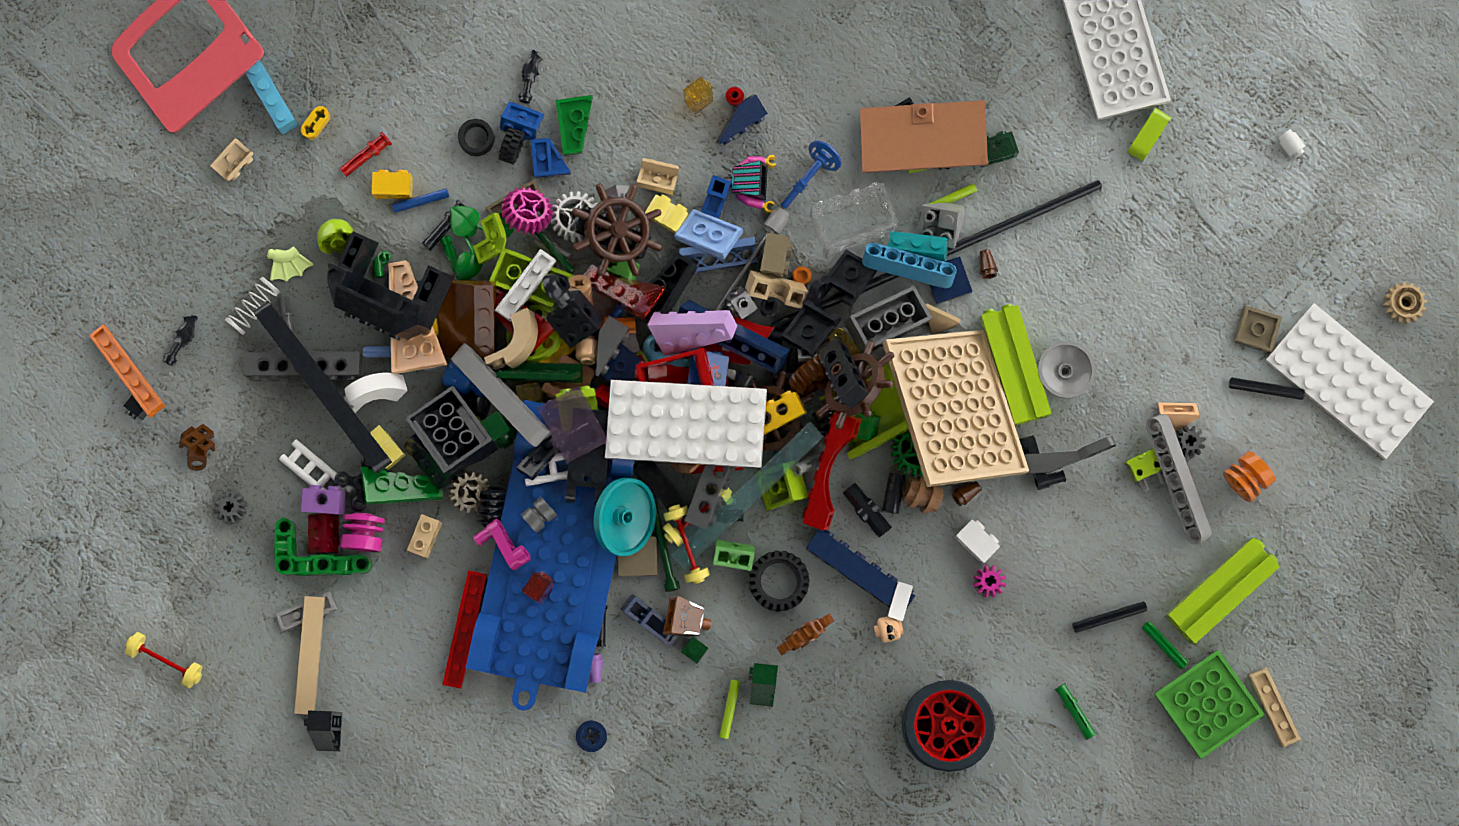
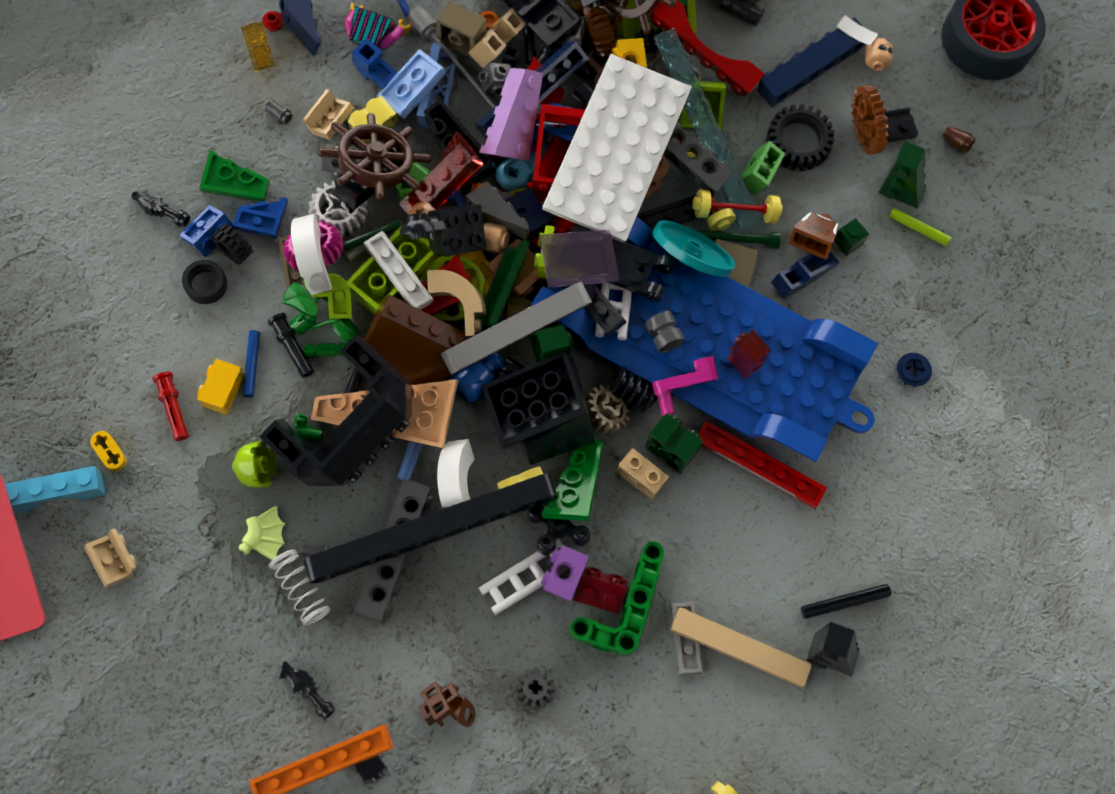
camera: 80 degrees left, 10 degrees down
(362, 532) = (618, 538): dark pink wheel -> none
(373, 729) = (846, 601): none -> black axle
(455, 553) = (673, 442): none -> dark green brick
(509, 207) = (308, 255): none -> white arch
(648, 135) = (282, 115): none -> dark grey pin
(823, 661) = (900, 125): none -> black plate
(828, 723) = (959, 139): none -> reddish brown cone
(867, 510) = (751, 37): black piece -> none

